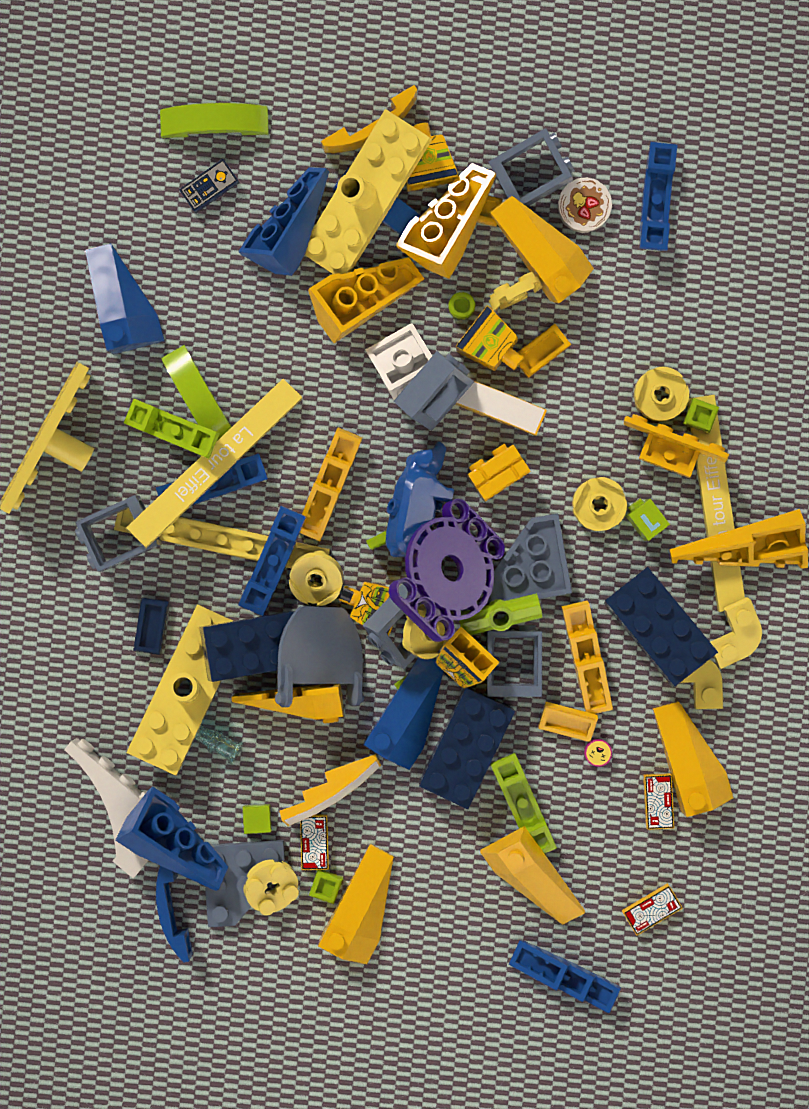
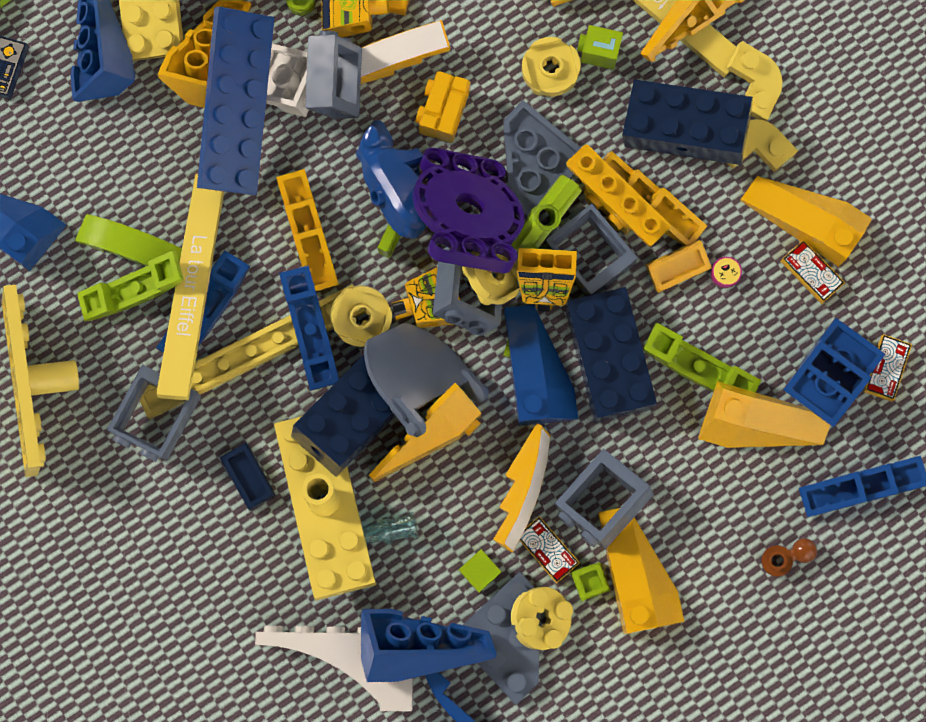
camera: 40 degrees left, 10 degrees down
(348, 858) = (640, 496): none -> sand blue window
(349, 352) = (235, 101): none -> blue plate
(485, 984) = (803, 550): none -> dark orange plate
(563, 641) = (616, 198): none -> yellow bracket
(609, 887) = (834, 372): none -> blue bracket

